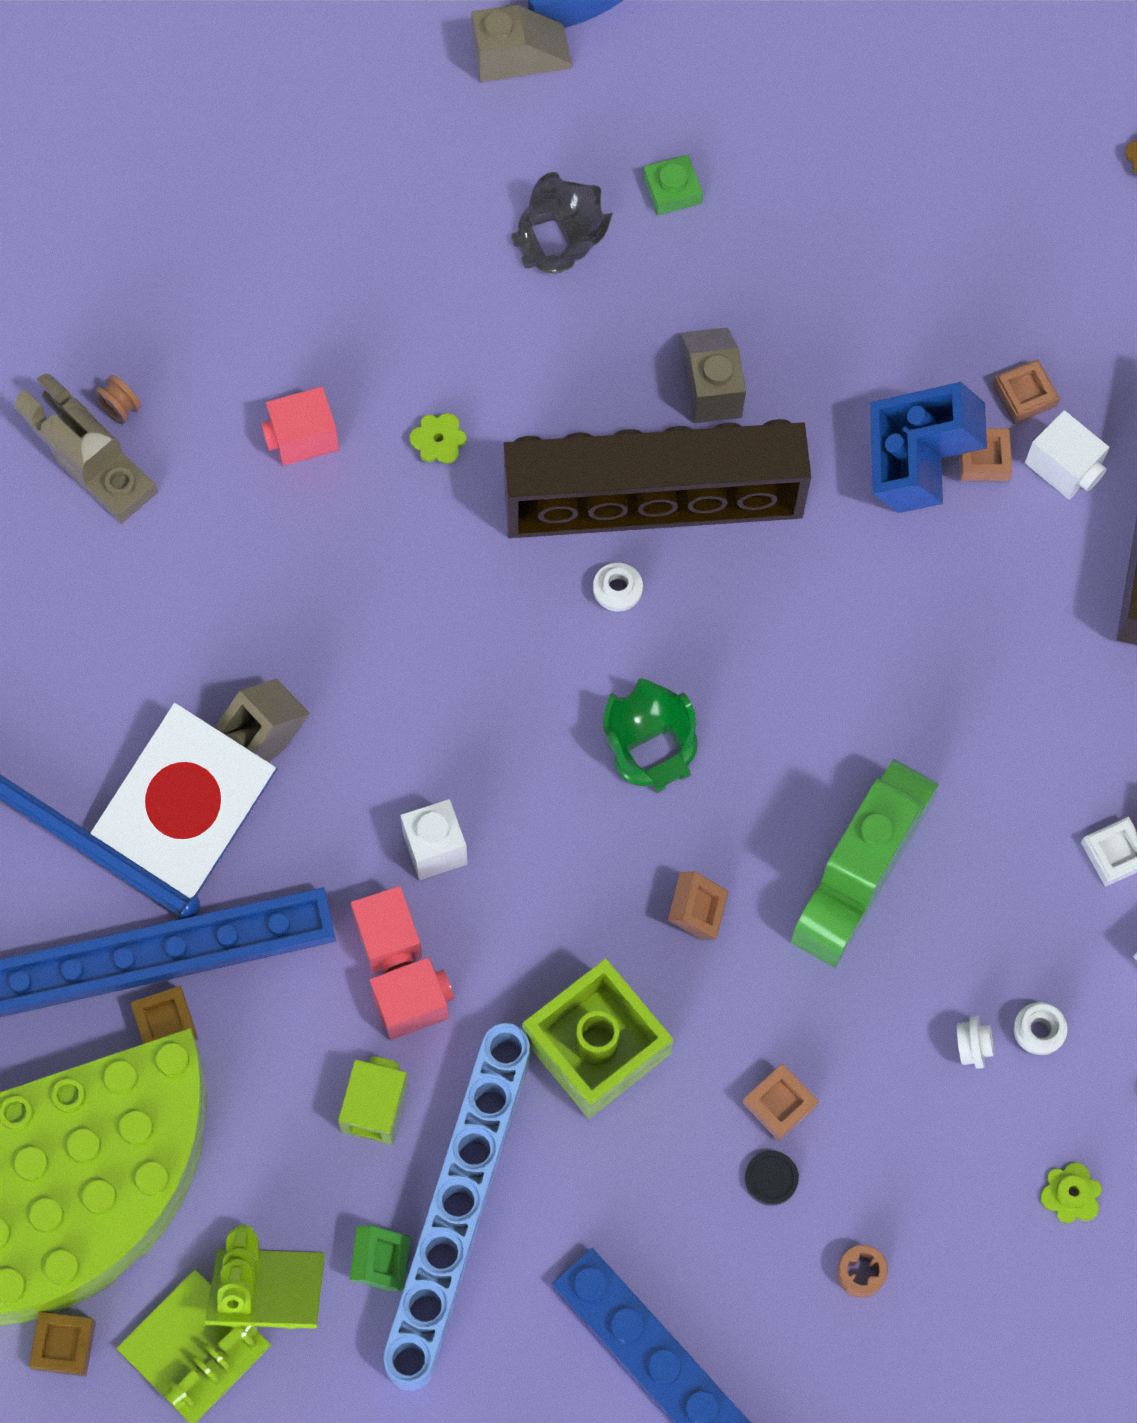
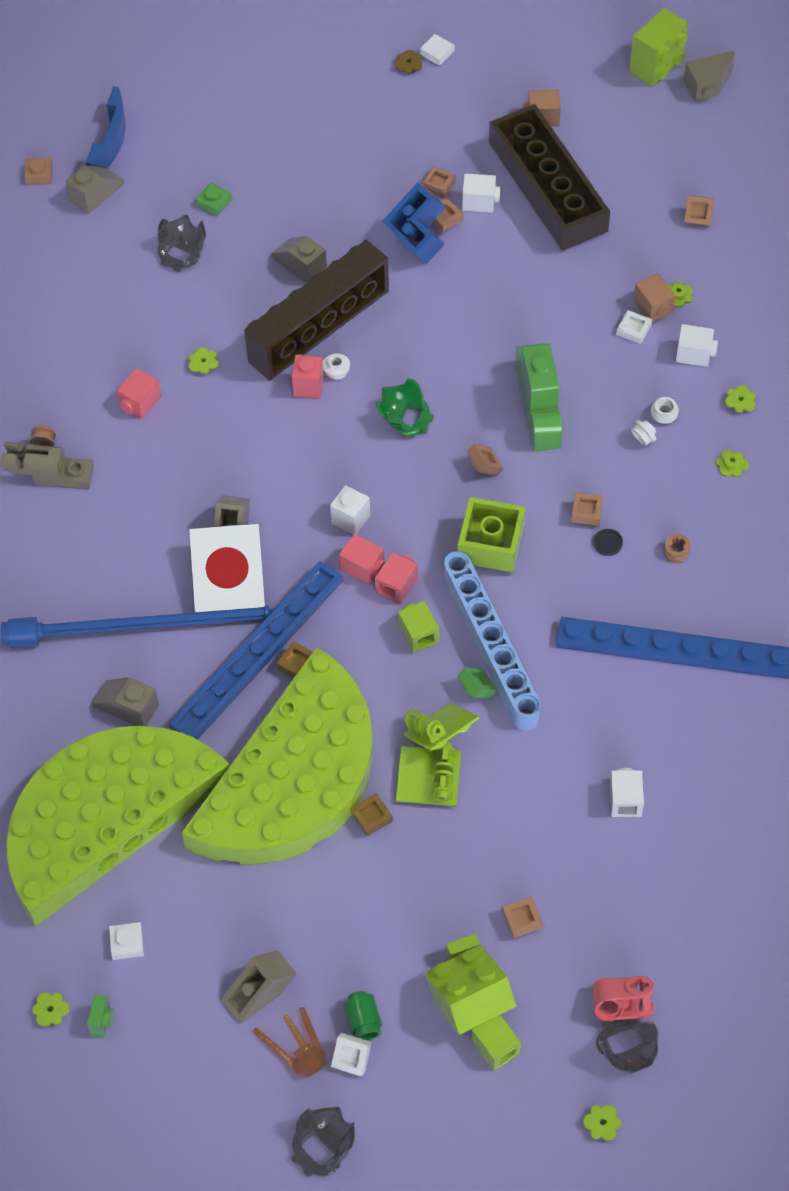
camera: 35 degrees left, 10 degrees down
(556, 576) = (307, 376): none -> coral brick

